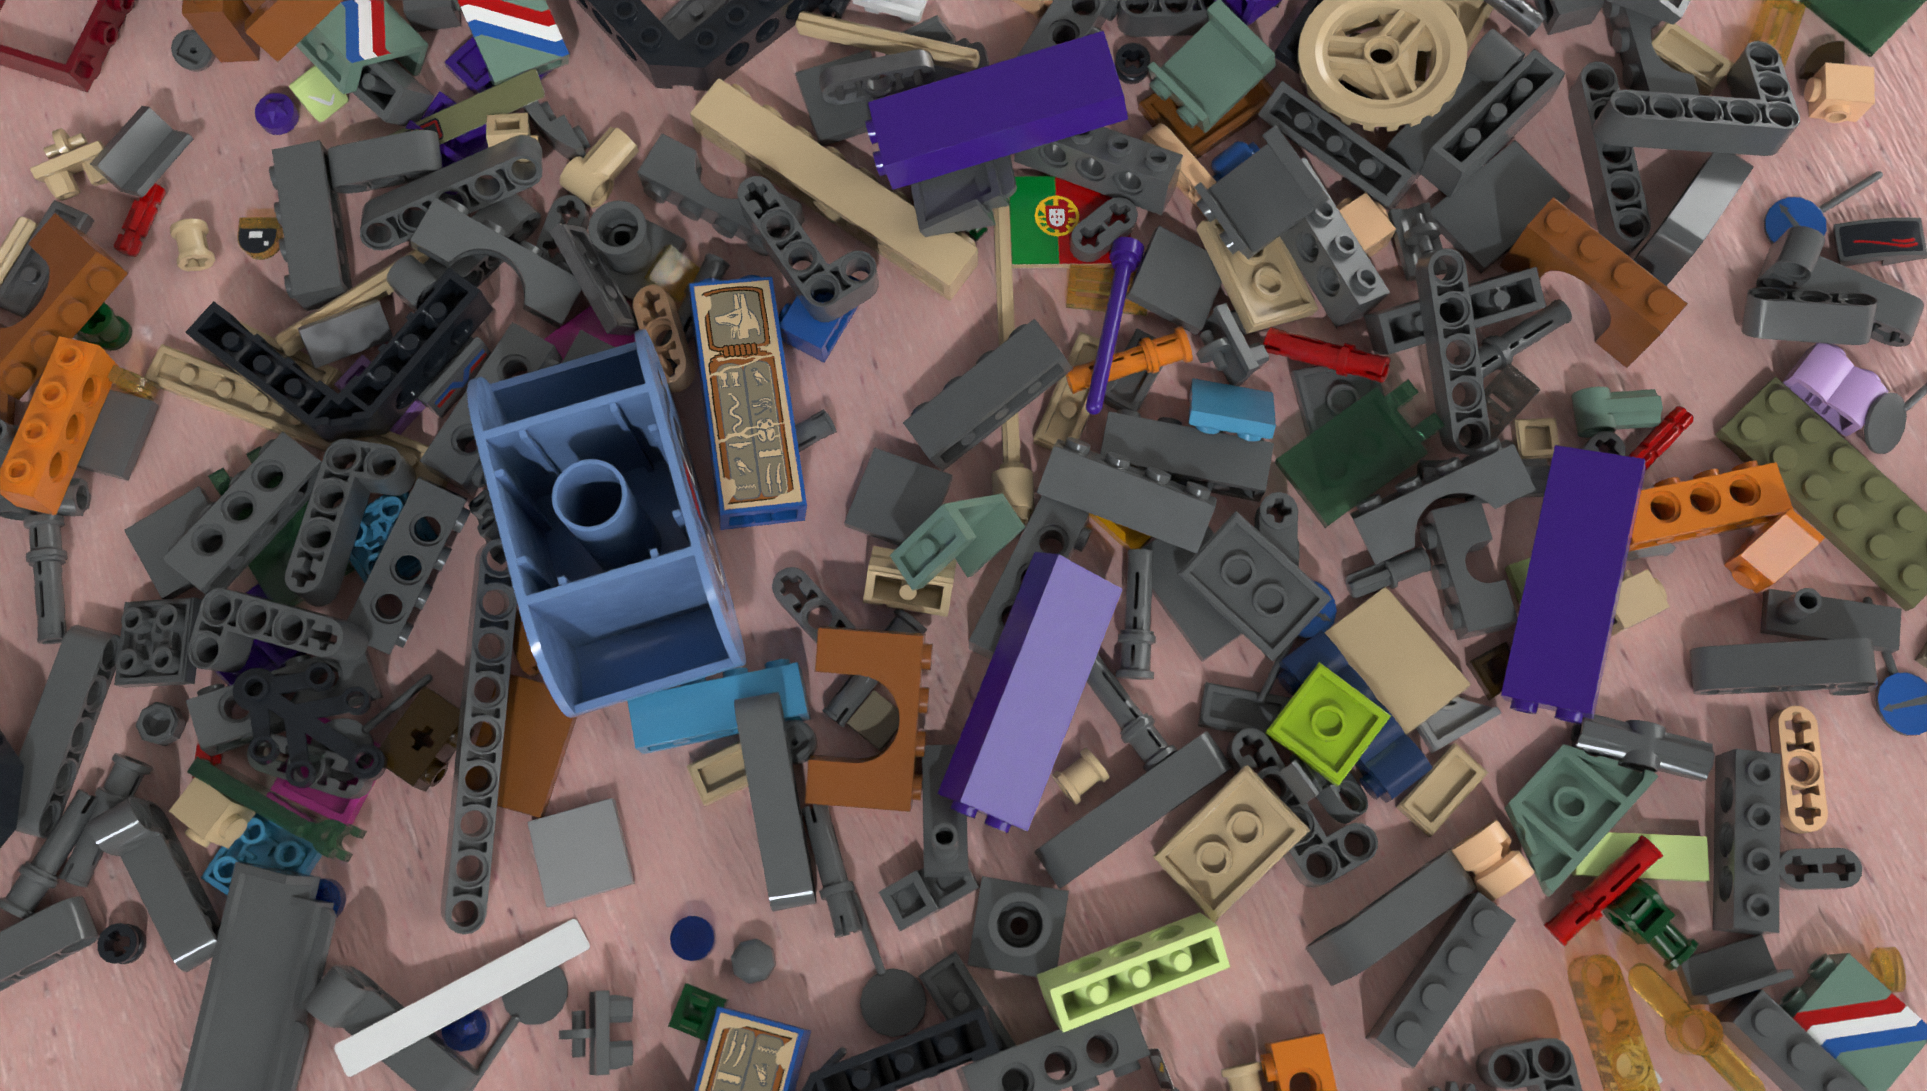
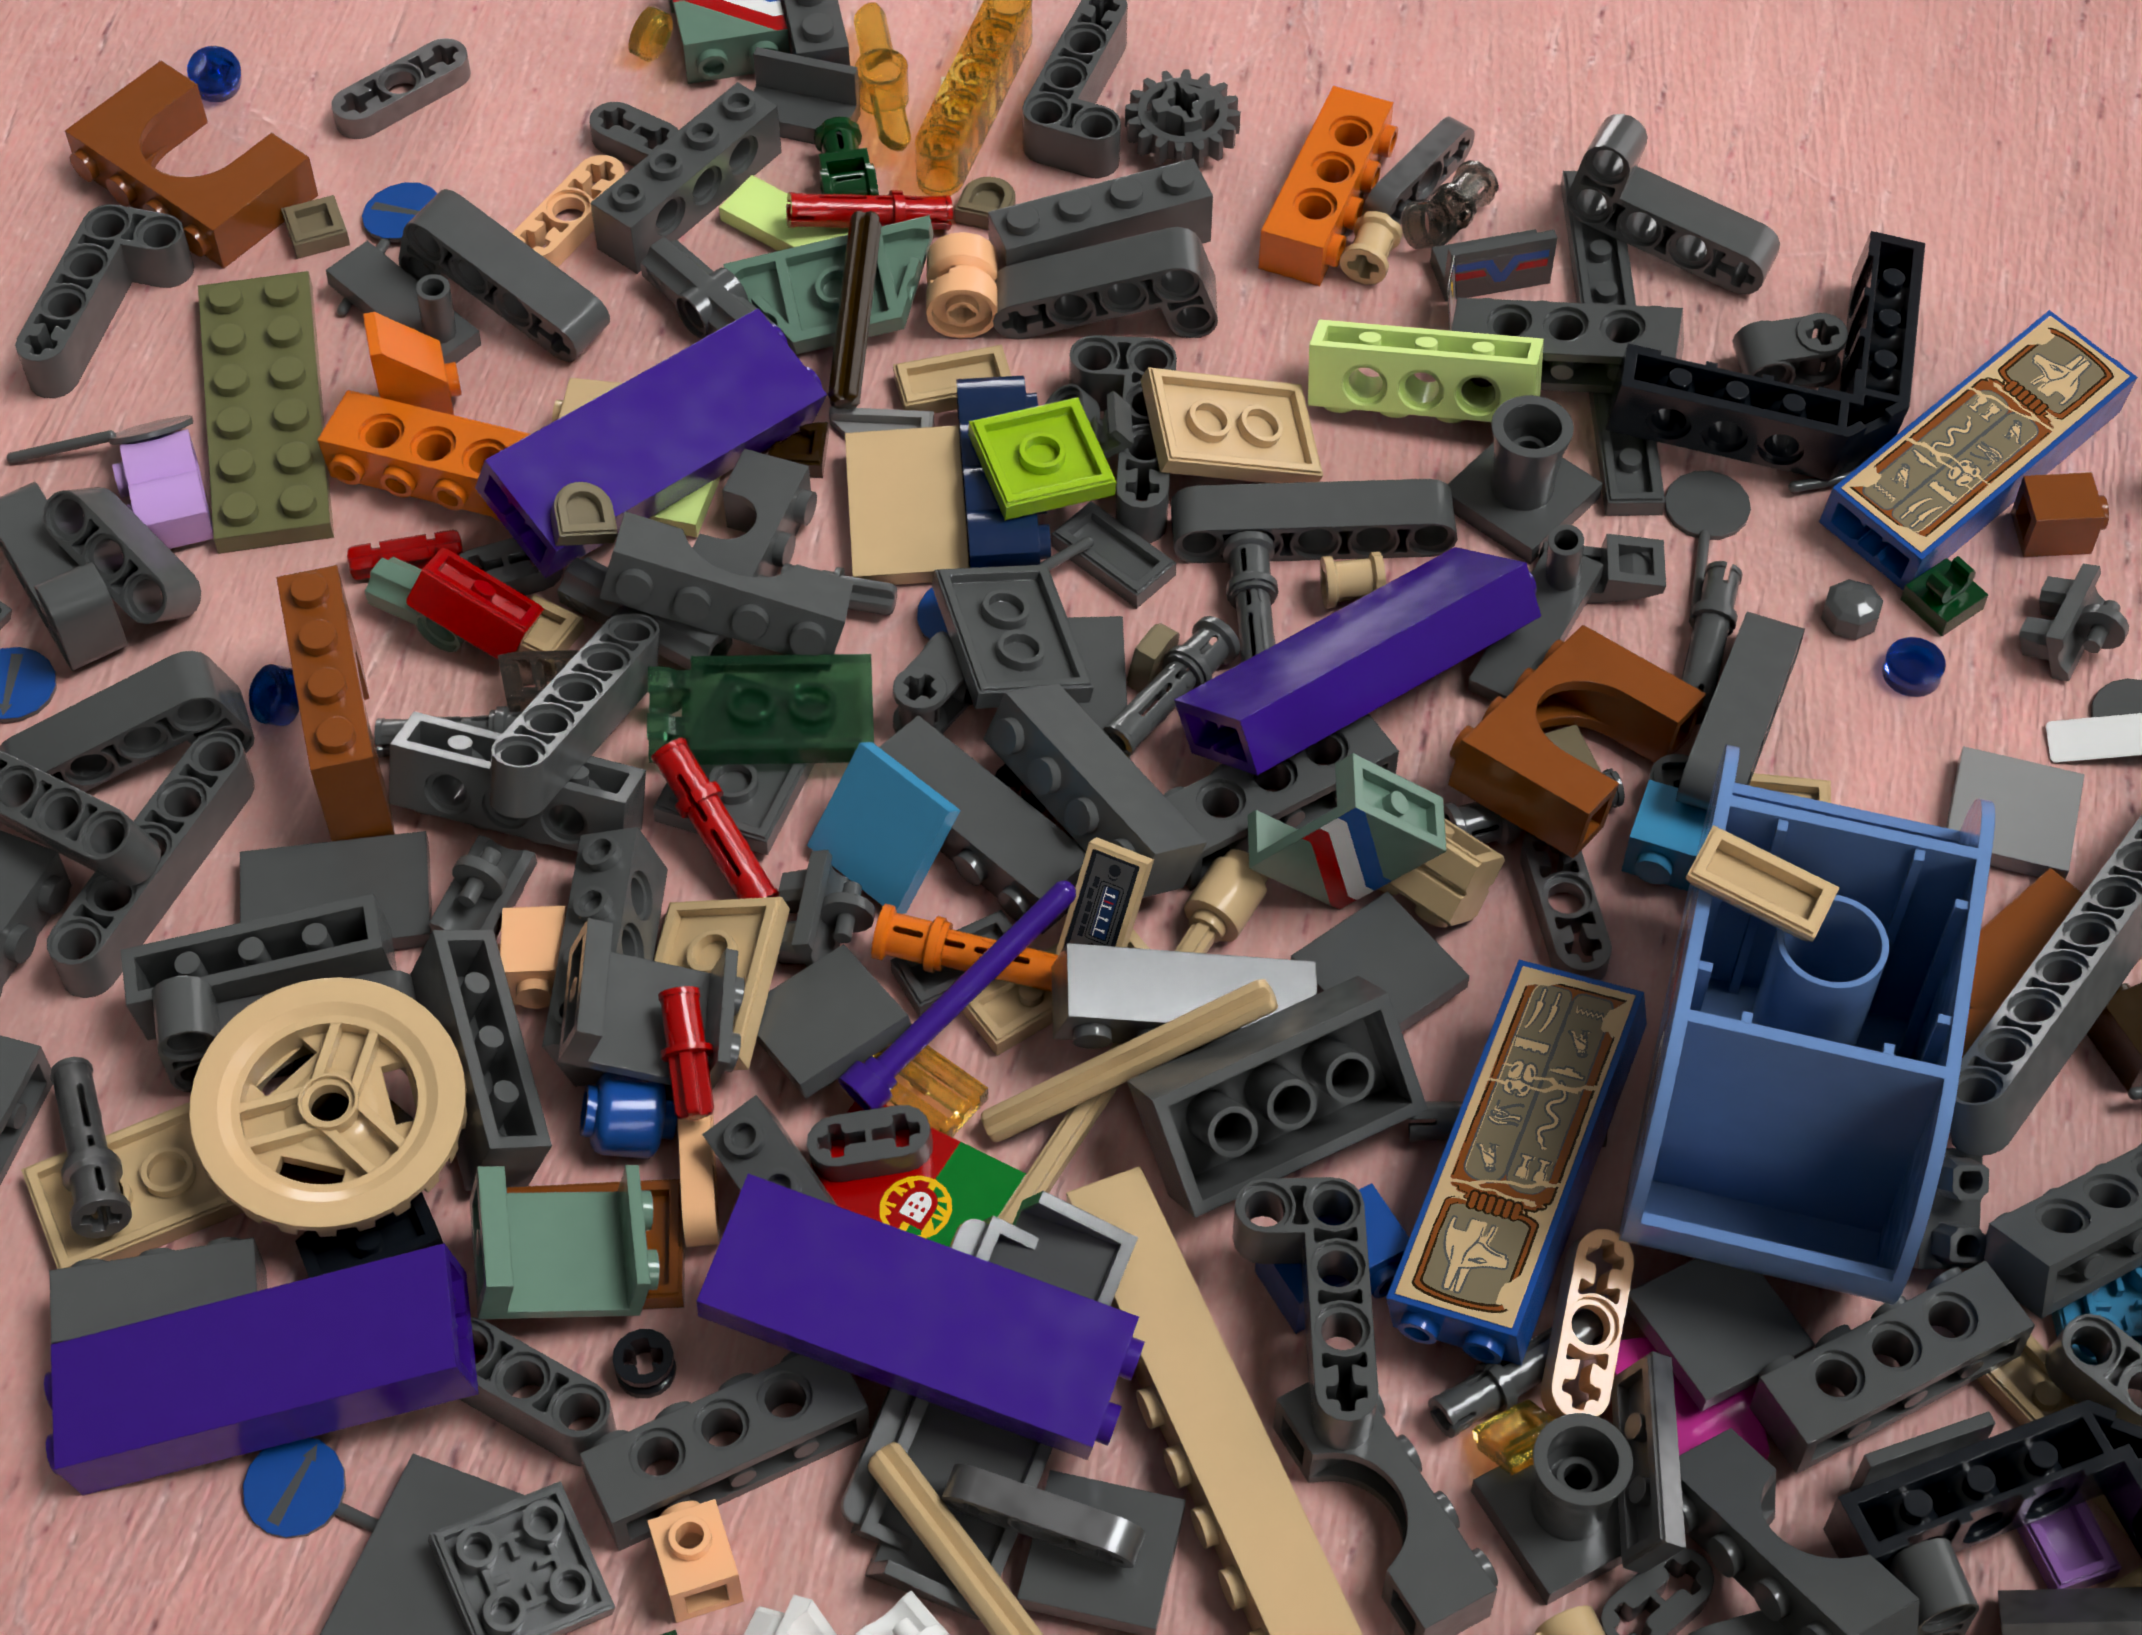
camera: 150 degrees left, 20 degrees down
(642, 490) = (1762, 884): none -> tan tile
(900, 362) = (1277, 1094): none -> dark grey brick
(989, 334) = (1129, 1060): none -> tan axle
(1067, 418) = (1106, 896): none -> tile
(1165, 639) = (1150, 654): none -> dark tan tile
(1224, 185) = (686, 1052): none -> red axle
(1536, 966) = (982, 197): none -> dark tan tile
(1541, 783) = (854, 310): none -> dark brown axle
(1559, 473) = (583, 516): none -> dark tan tile
(1581, 410) = (473, 604): none -> red slope

